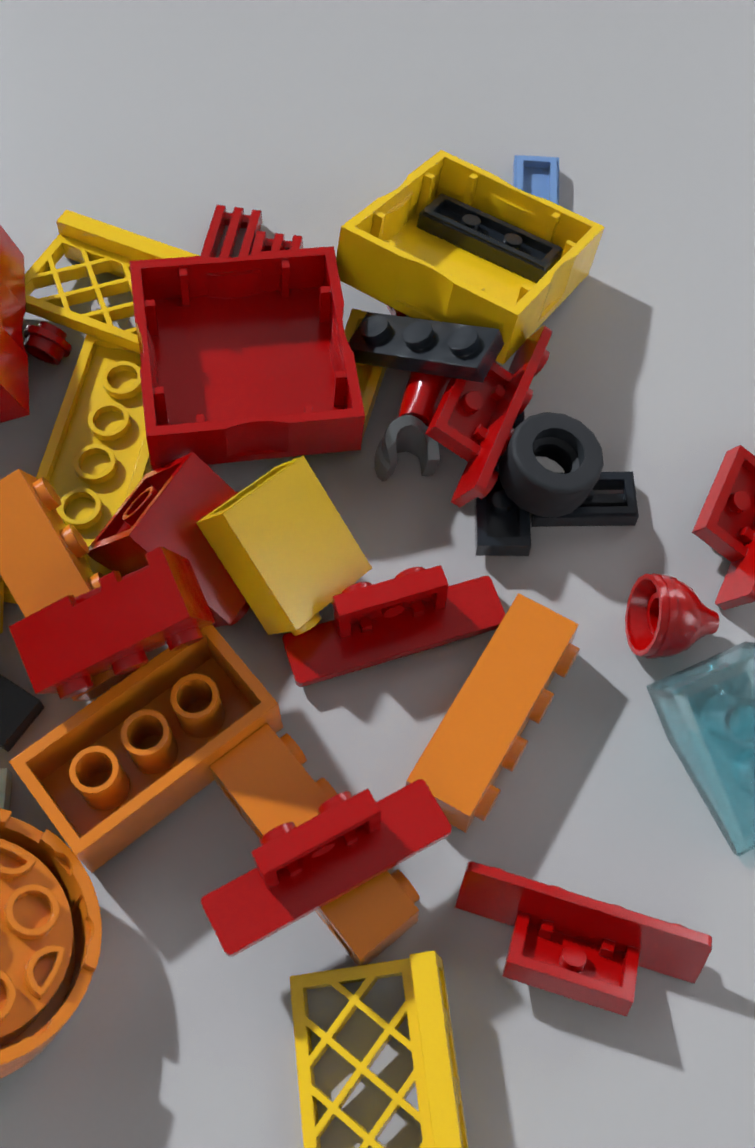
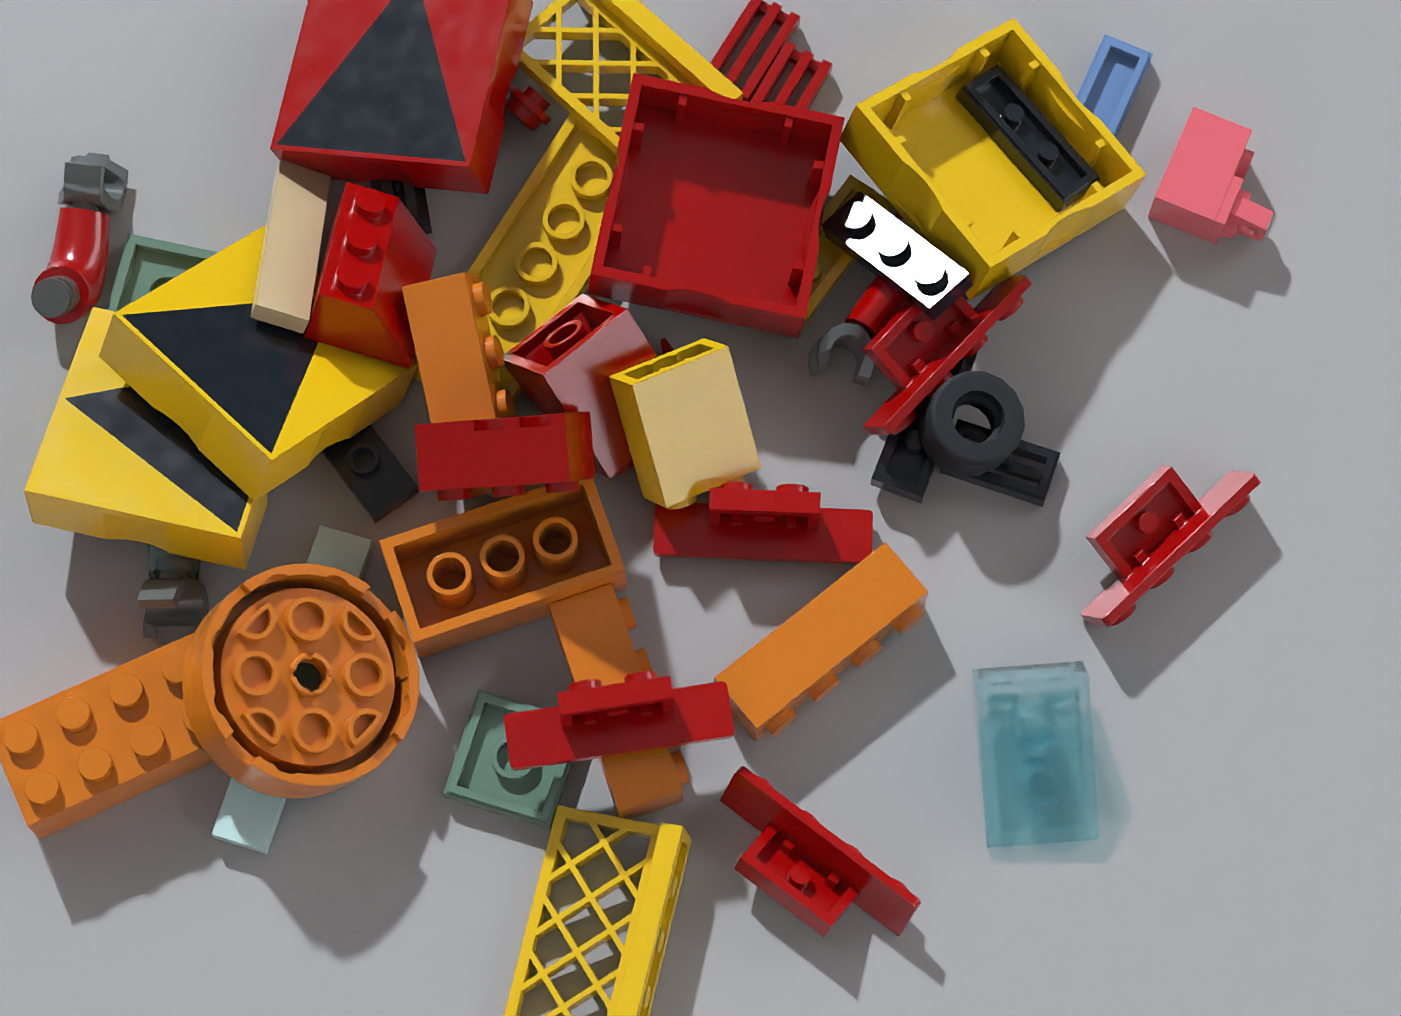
camera: 20 degrees right, 10 degrees up
(199, 972) = (484, 774): none -> sand green tile
(650, 229) = (1205, 179): none -> coral hinge
(665, 617) = (1021, 612): red helmet -> none

